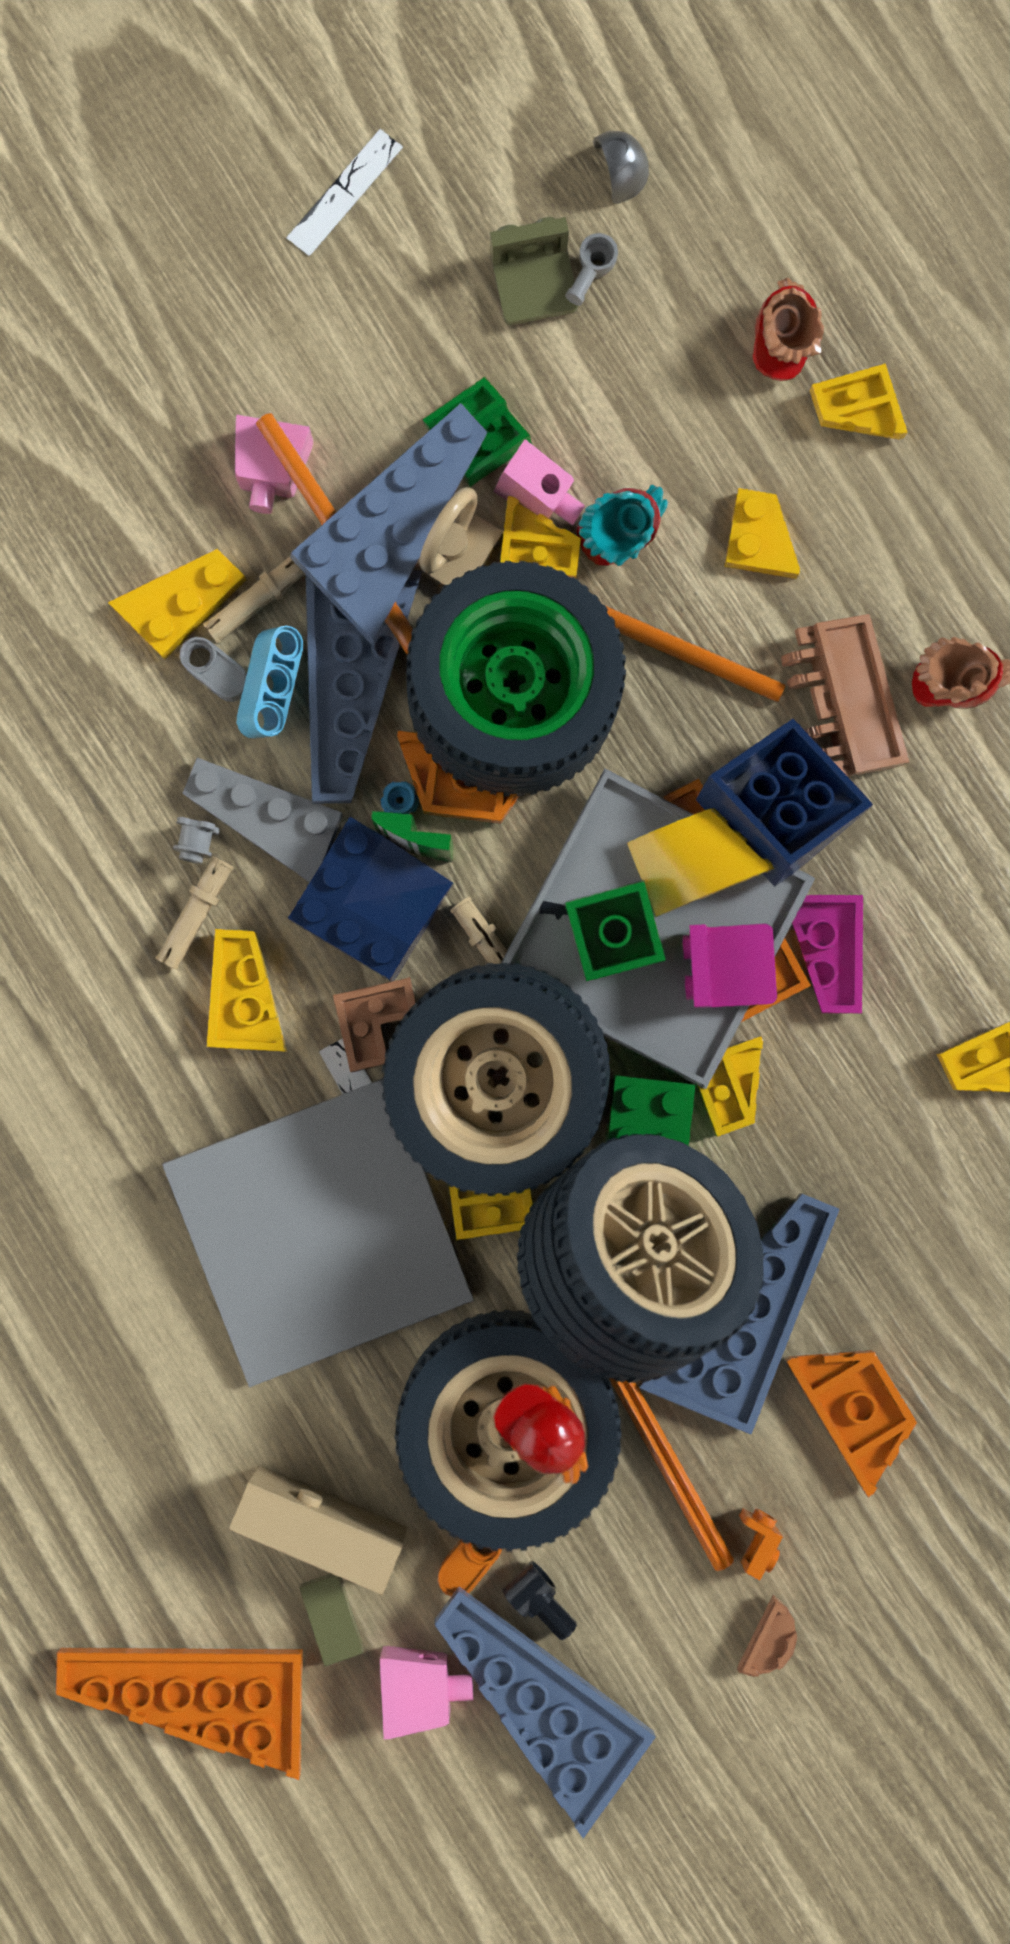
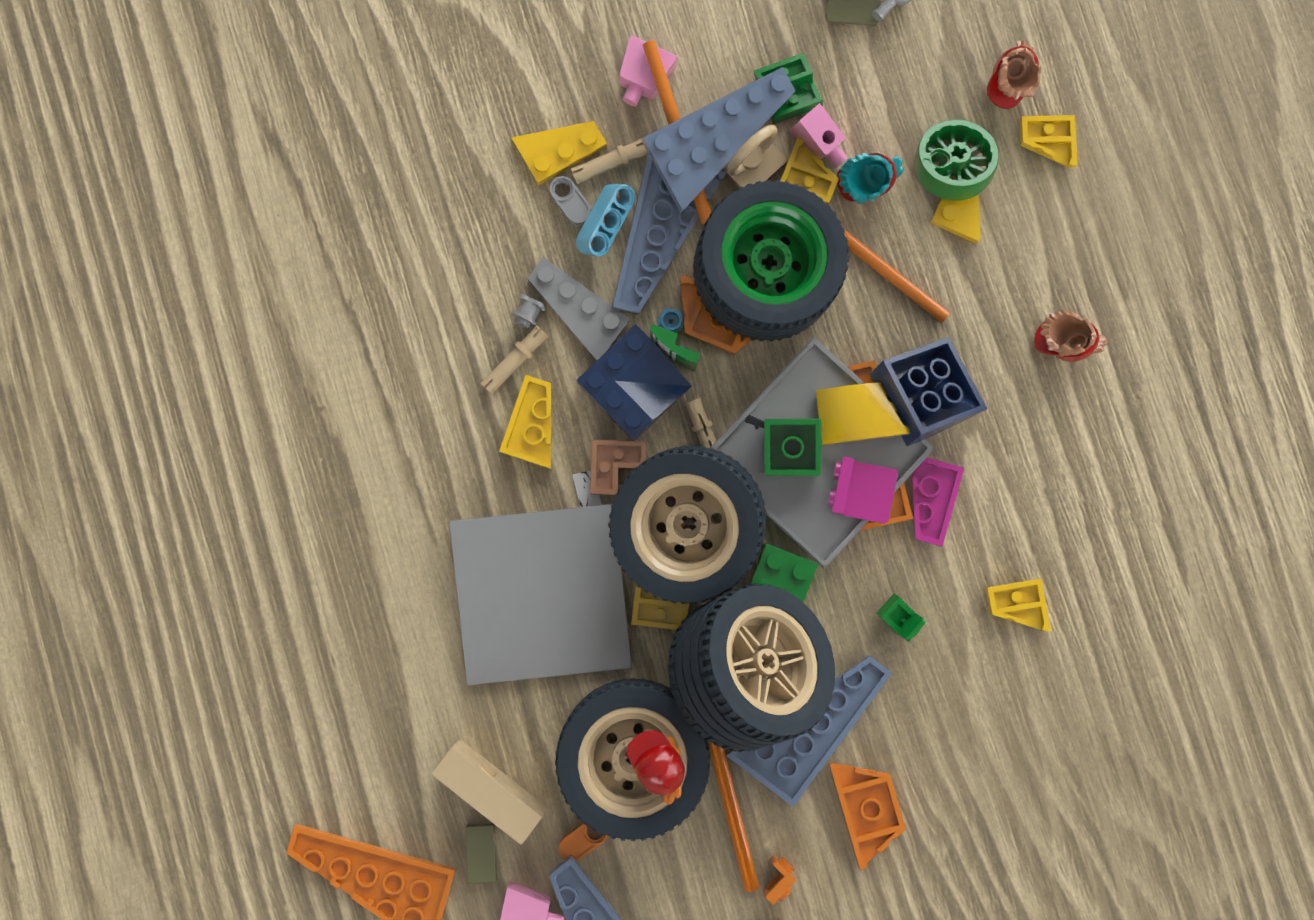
camera: 10 degrees right, 0 degrees up
(533, 1594) = (620, 874): black axle -> none
(733, 1088) = (842, 573): yellow wing -> none
(737, 469) = (956, 160): none -> green piece
(831, 1128) = (901, 617): none -> green bracket
(853, 694) = (993, 331): nougat hinge -> none

